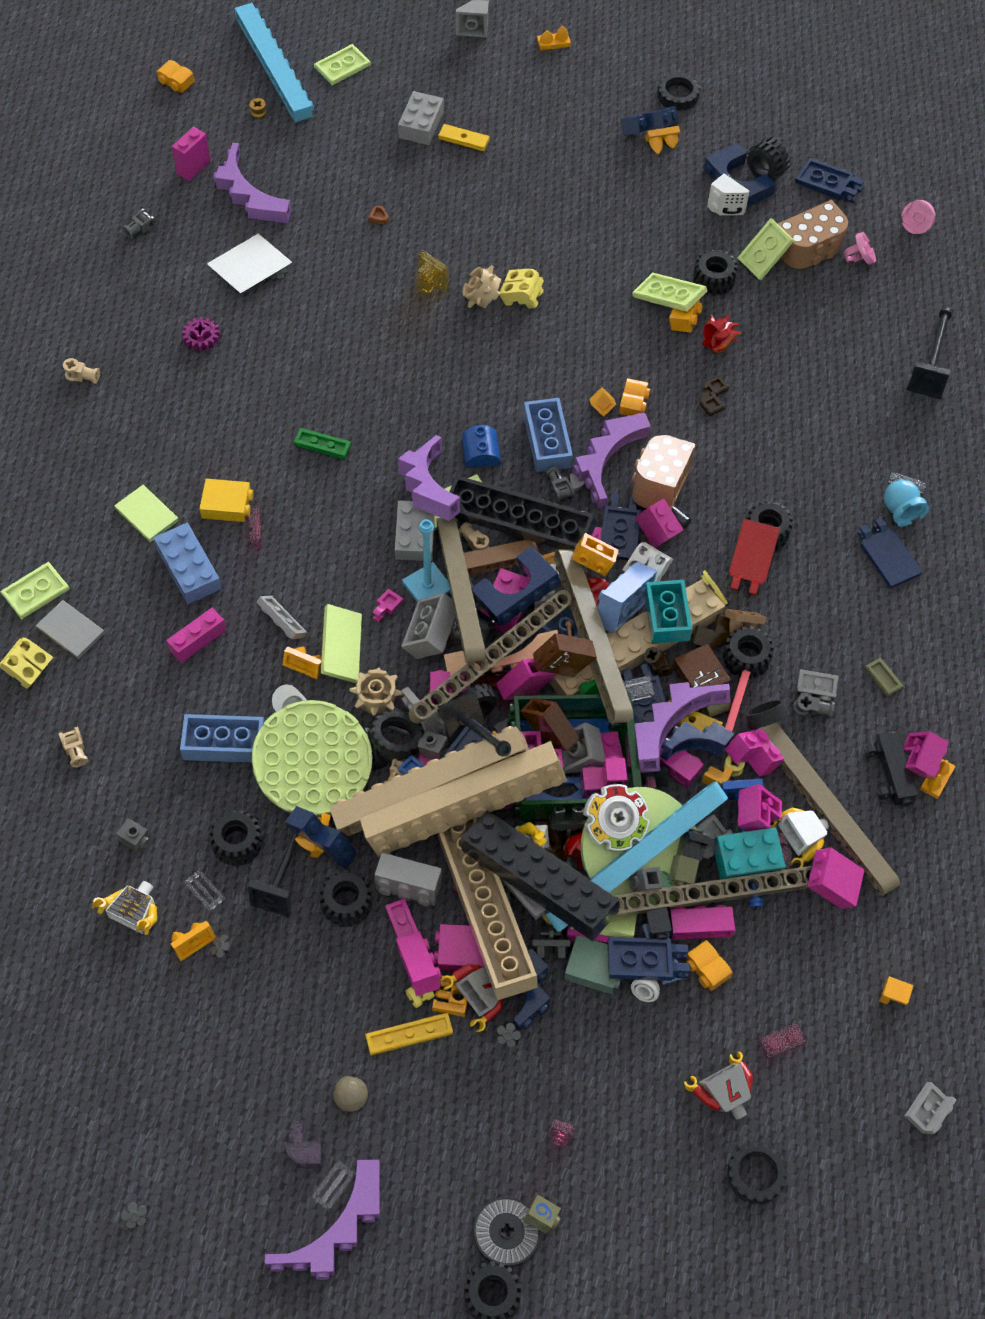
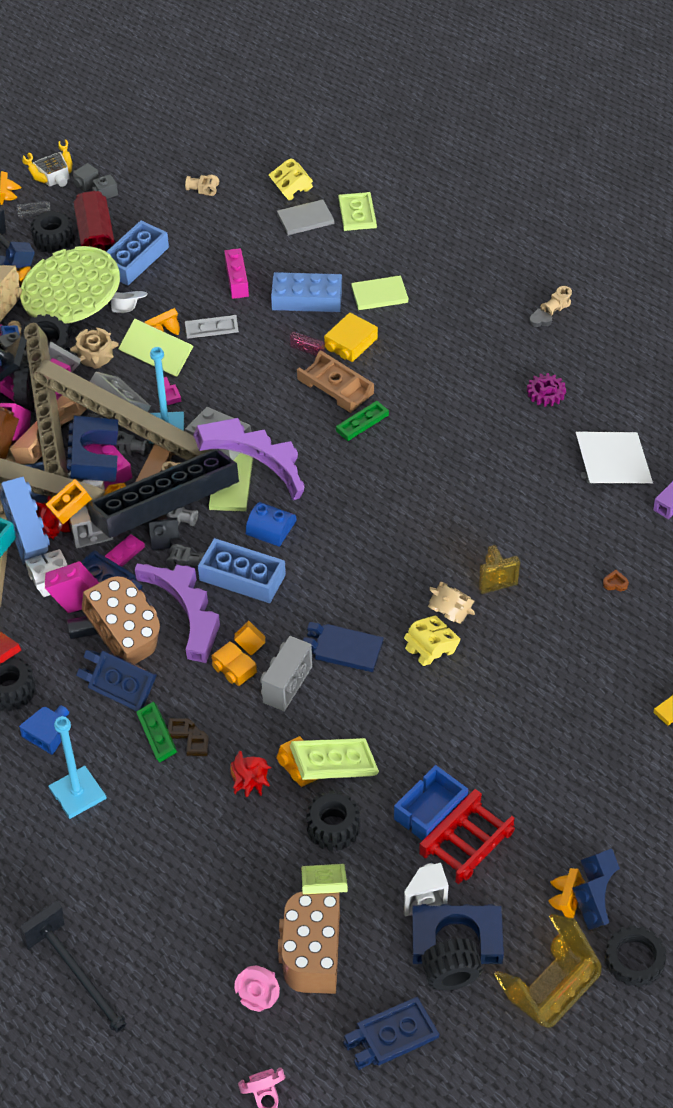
camera: 125 degrees right, 10 degrees down
(107, 379) = (540, 318): none -> flat silver tile
(129, 861) = (84, 177): none -> dark grey brick
(206, 797) = (93, 220): none -> dark red brick
(289, 498) = (349, 390): none -> medium nougat piece
(563, 343) = (344, 646): none -> dark blue tile
(622, 352) = (286, 673): none -> light grey brick
(659, 225) = (428, 809): none -> blue piece
(662, 213) = (459, 818): none -> red fence
(708, 458) = (118, 679): none -> dark blue tile
(728, 412) = (156, 732): none -> green plate
(729, 119) = (562, 981): none -> clear yellow windscreen
(782, 480) = (40, 728): none -> blue torso
(811, 432) = (78, 789): none -> medium azure tile

